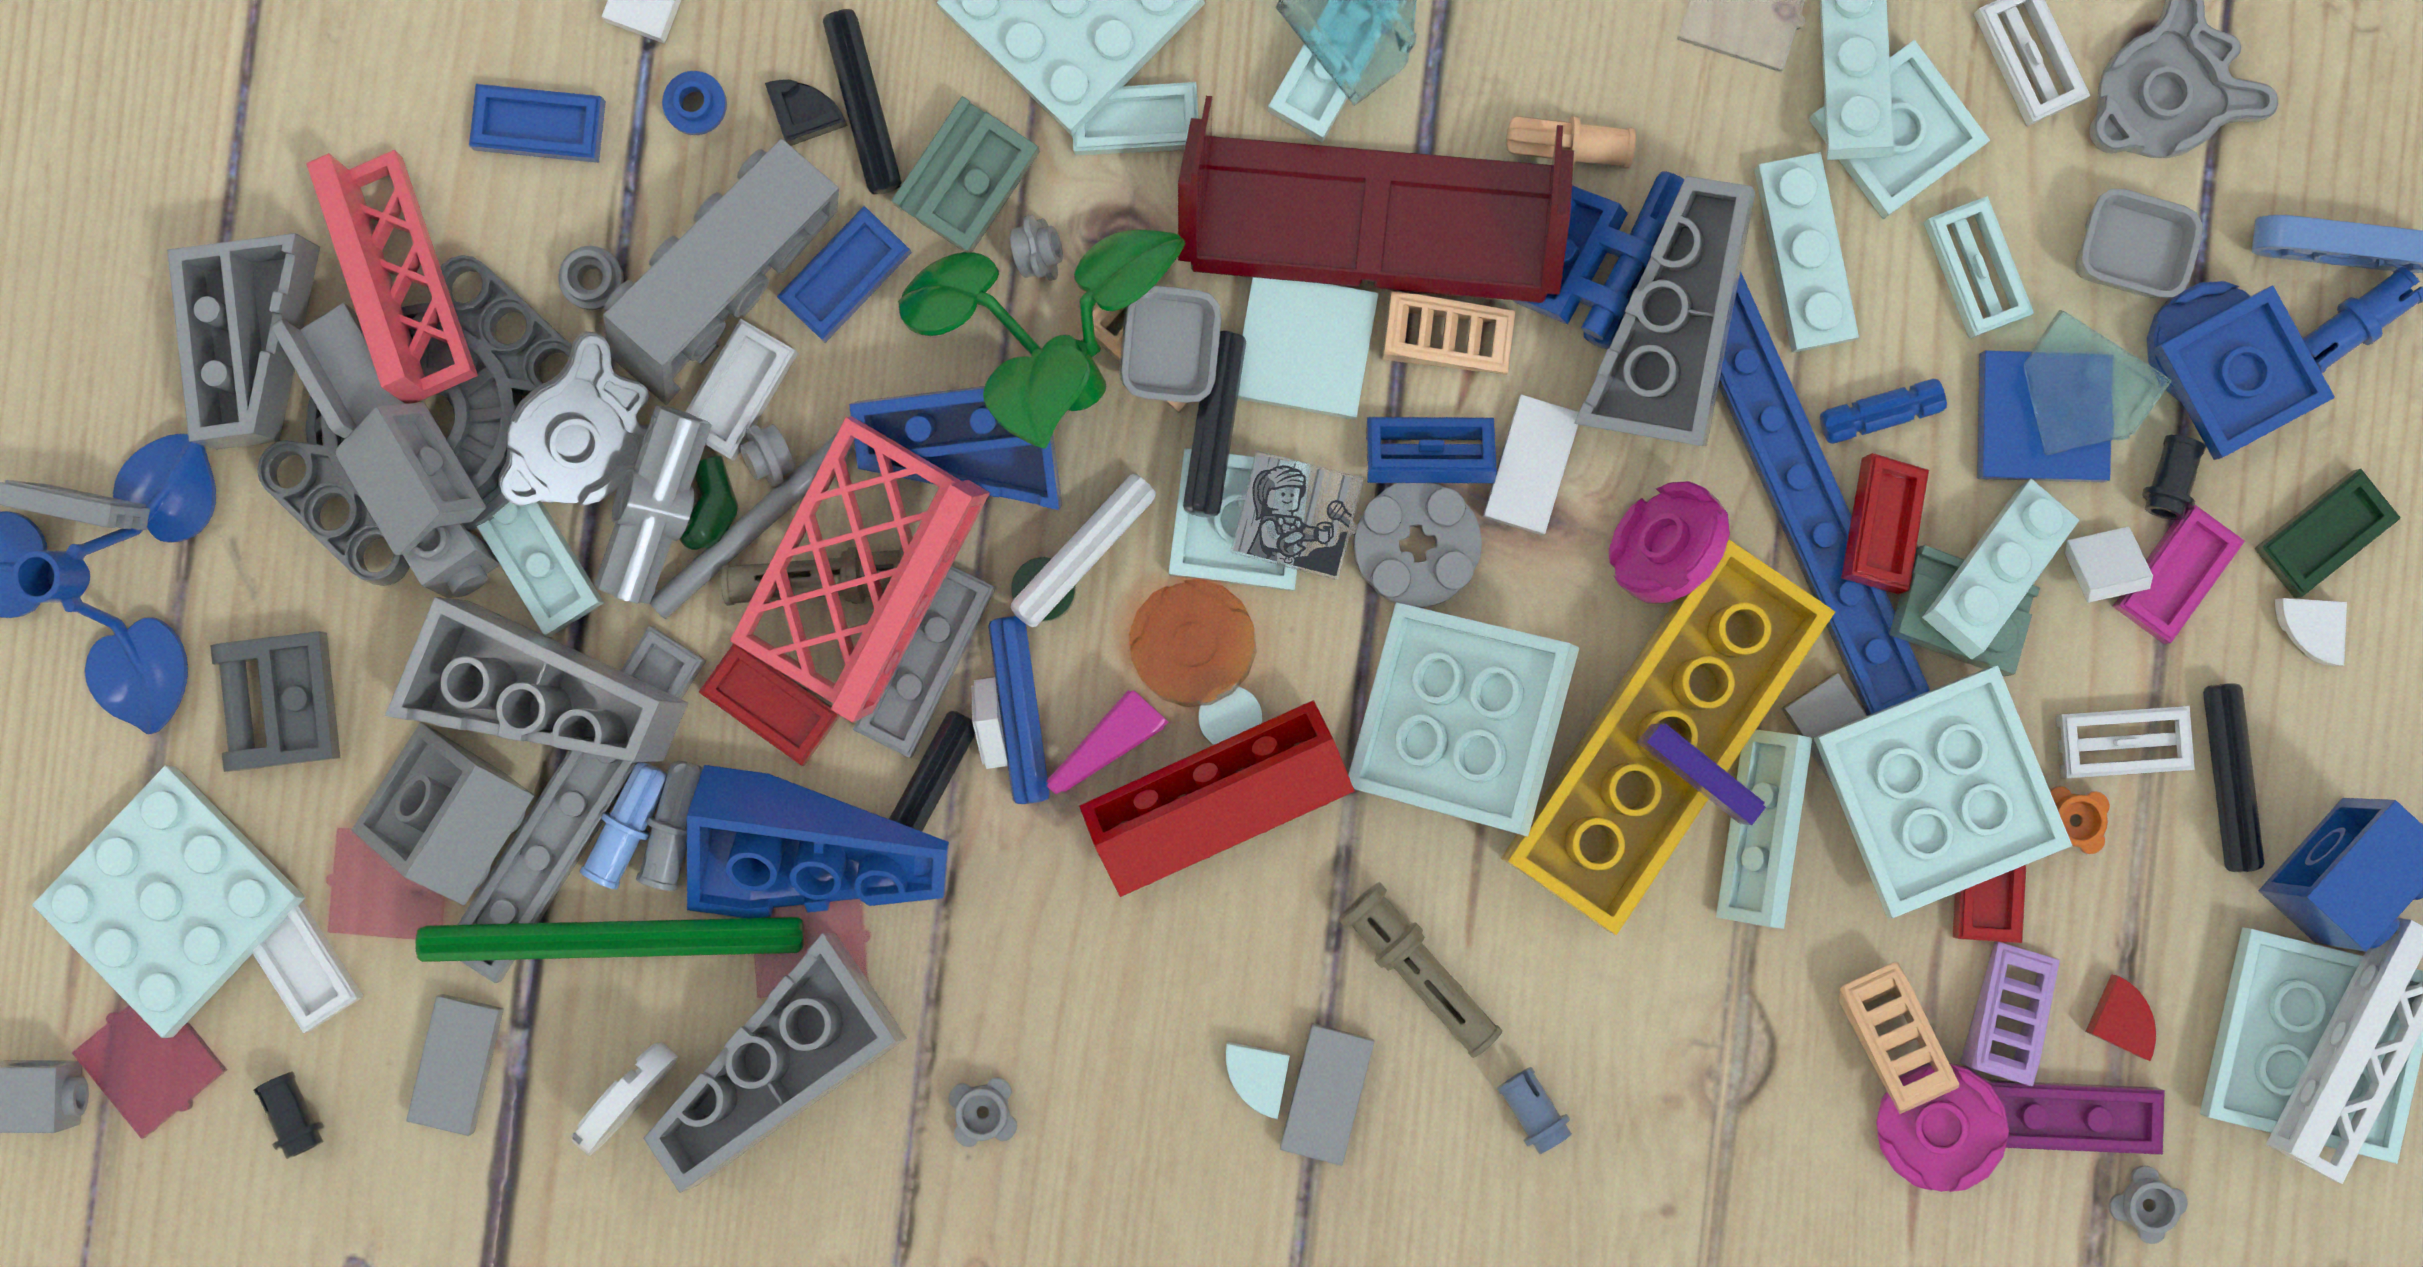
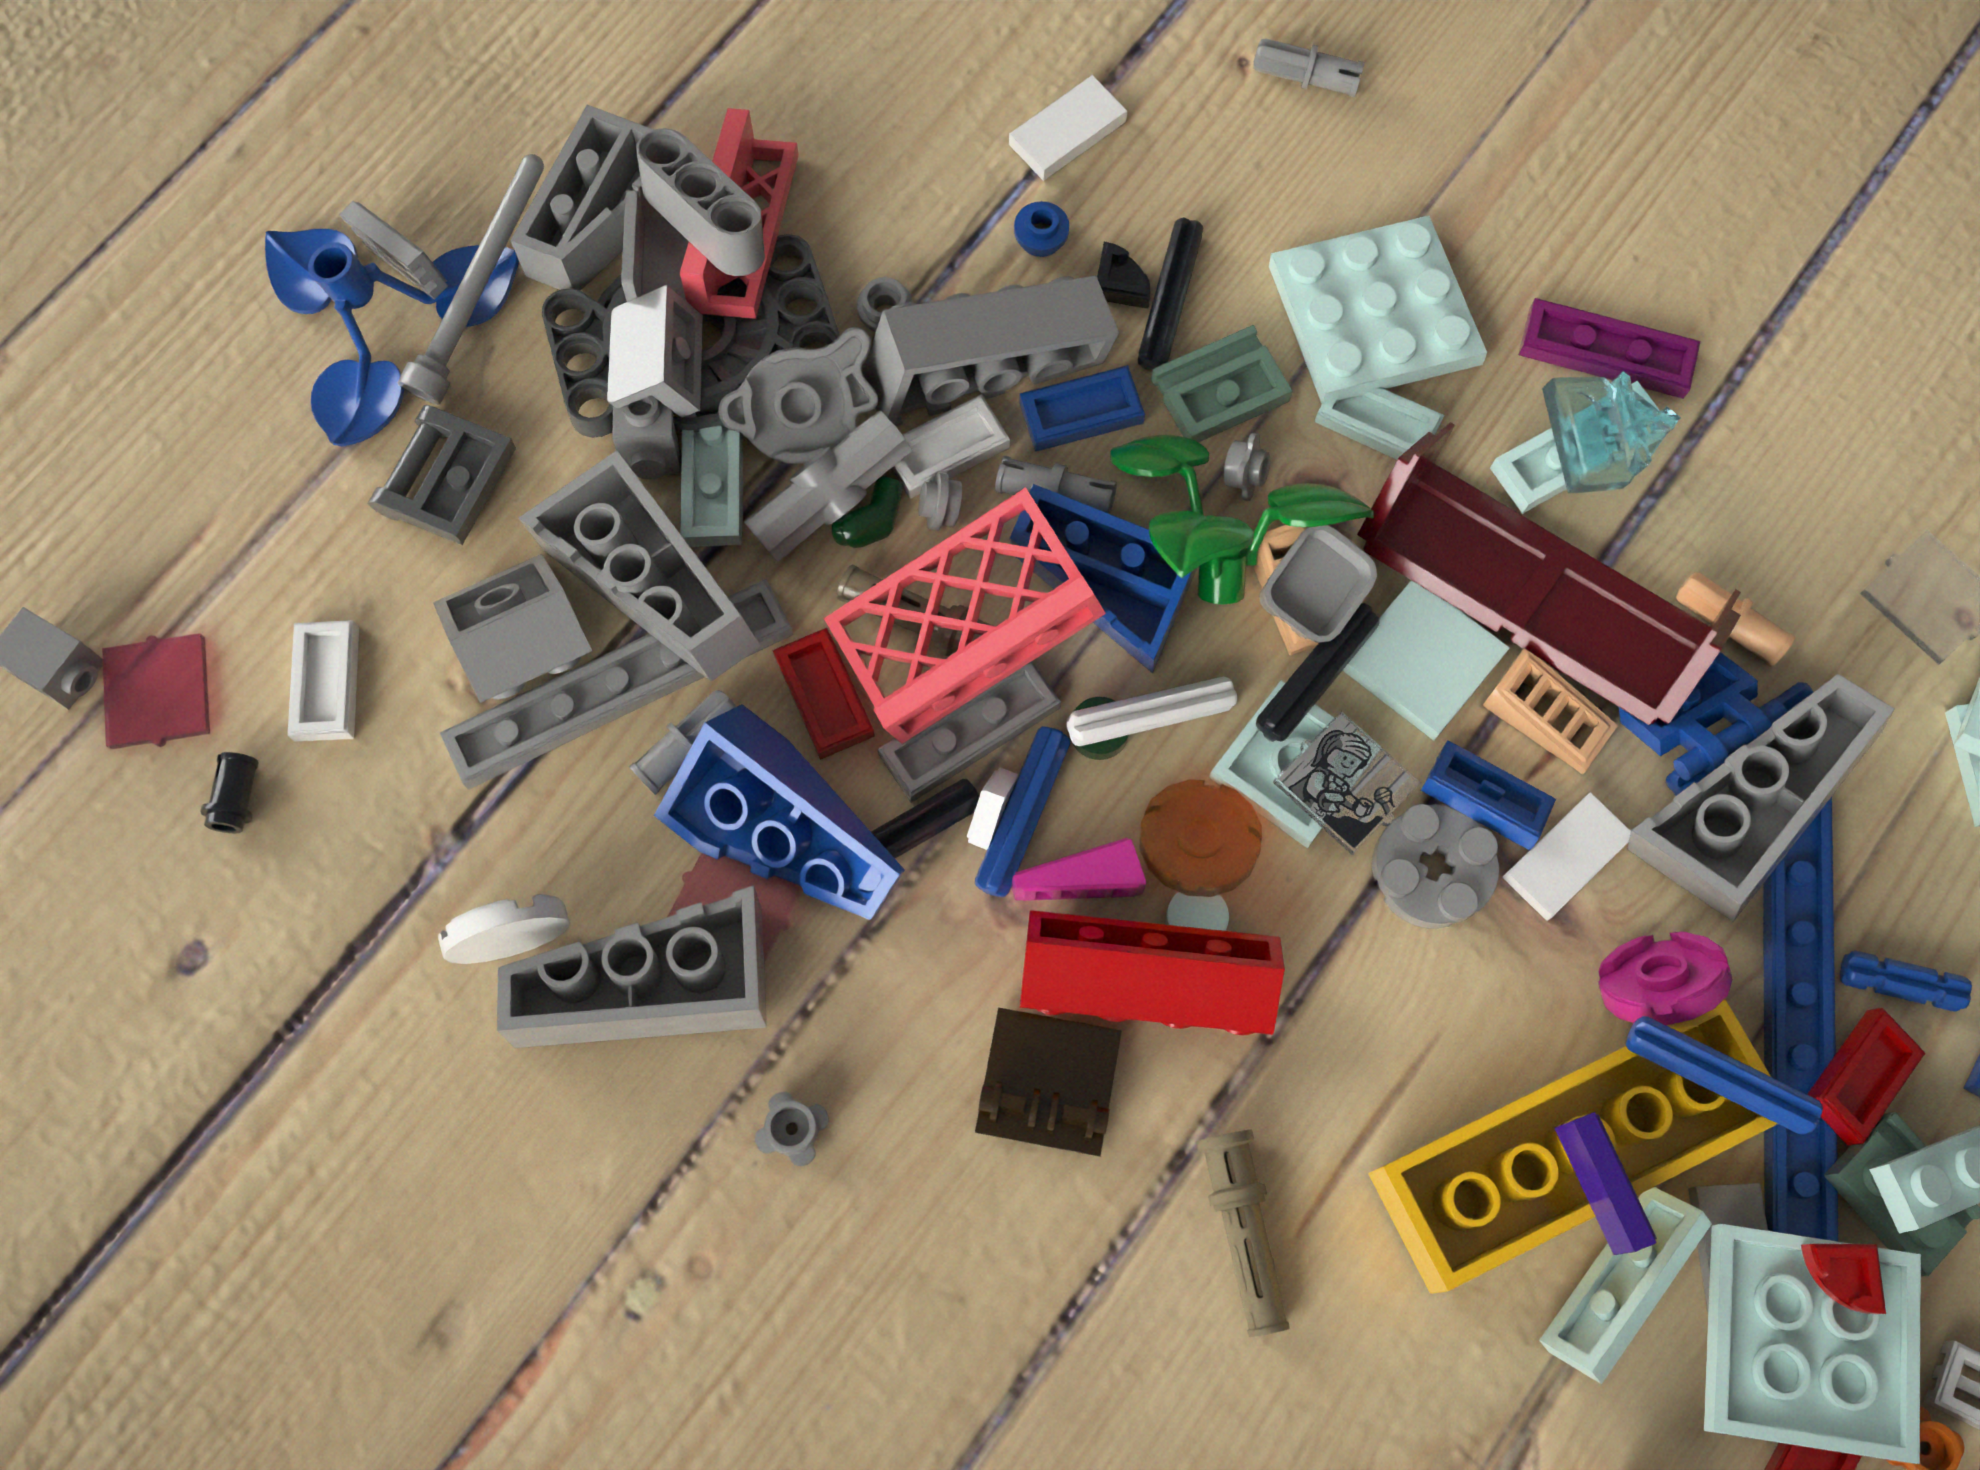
camera: 25 degrees right, 15 degrees down
(168, 901) = (257, 576): light aqua plate -> none
(193, 609) = (429, 372): none -> light grey piece
(334, 286) = (701, 202): none -> light grey beam
(375, 897) = (422, 667): clear pink piece -> none
(455, 1064) = (387, 832): light grey tile -> none
(537, 123) = (914, 183): blue tile -> none
(609, 939) = (578, 799): green axle -> none
(625, 826) = (647, 720): light blue axle -> none
(740, 535) = (867, 555): light grey bar -> none
(867, 374) = (1016, 475): none -> light grey pin
(1181, 941) = (1048, 1082): none -> dark brown hinge
(1258, 1076) = (1047, 1240): light aqua tile -> none
(1326, 1094) = (1099, 1293): light grey tile -> none
(1462, 717) = (1405, 1025): light aqua plate -> none
(1535, 1111) = (1281, 1421): sand blue pin -> none
(1757, 614) = (1724, 1075): none -> blue axle
(1806, 252) = (1895, 816): light aqua plate -> none
(1943, 721) = (1848, 1274): none -> red tile

